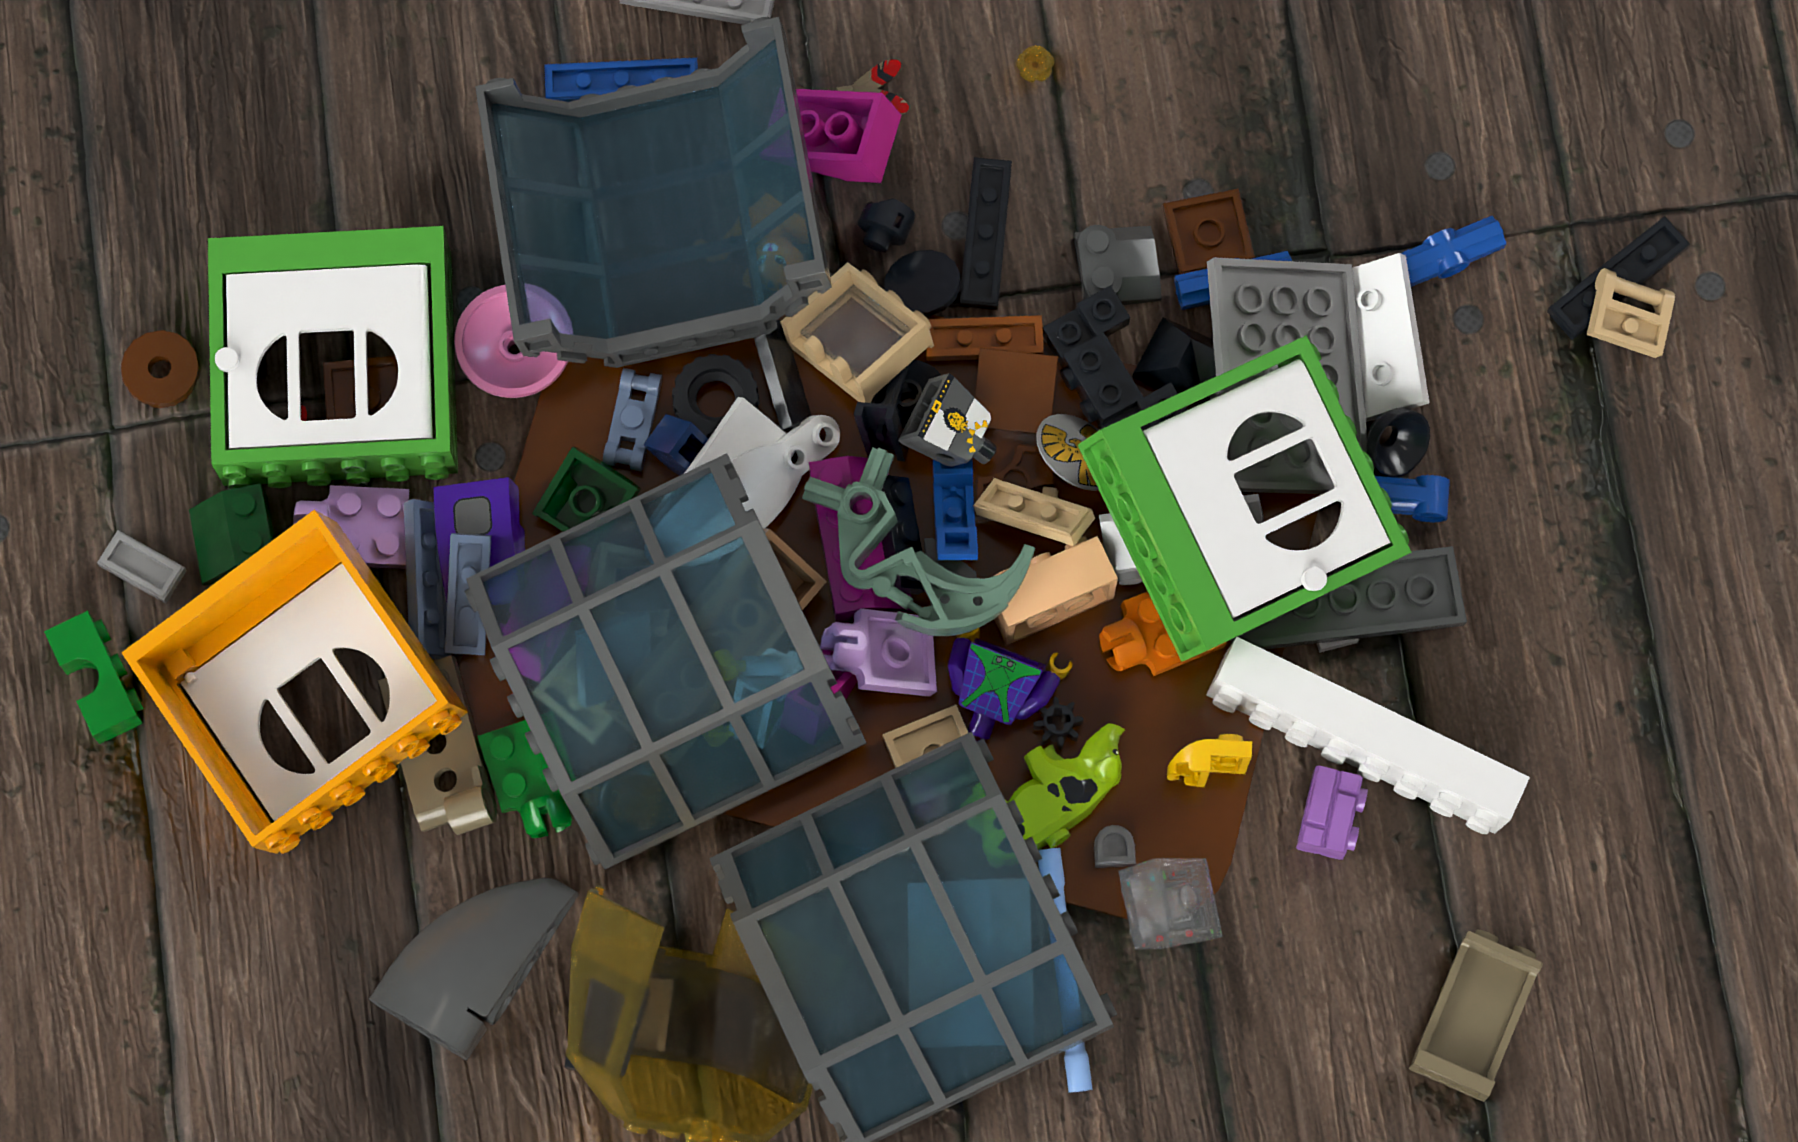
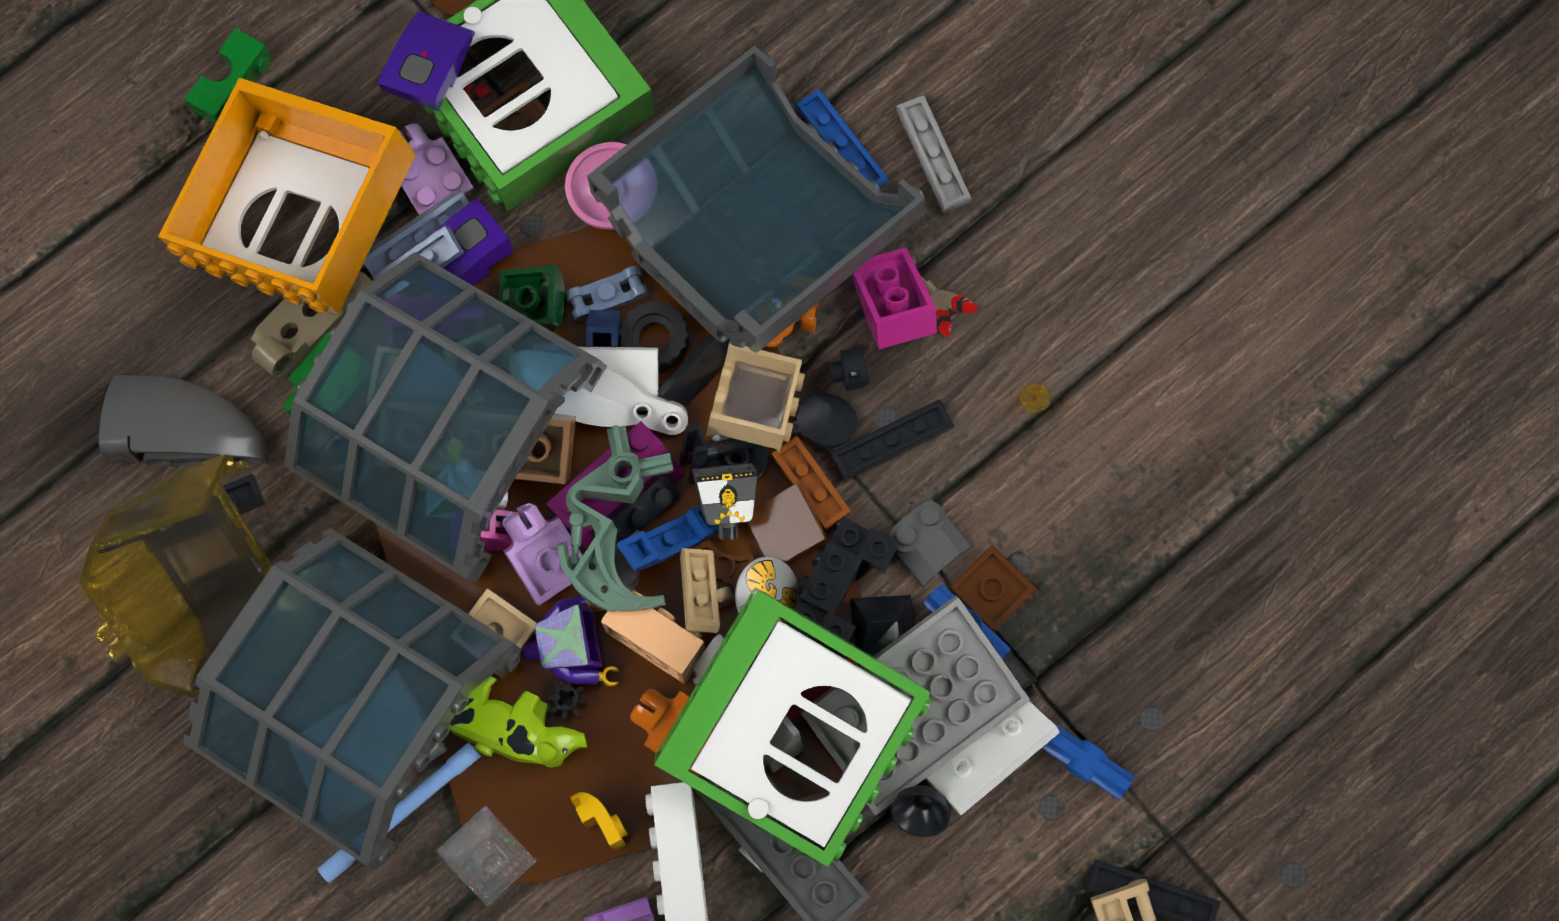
camera: 60 degrees right, 0 degrees up
(141, 566) = (321, 61): light grey tile -> none
(230, 530) = (372, 103): dark green slope -> none
(250, 435) = (426, 60): none -> dark purple slope
(1114, 848) = (505, 793): flat silver tile -> none
(1421, 497) = (892, 852): blue piece -> none

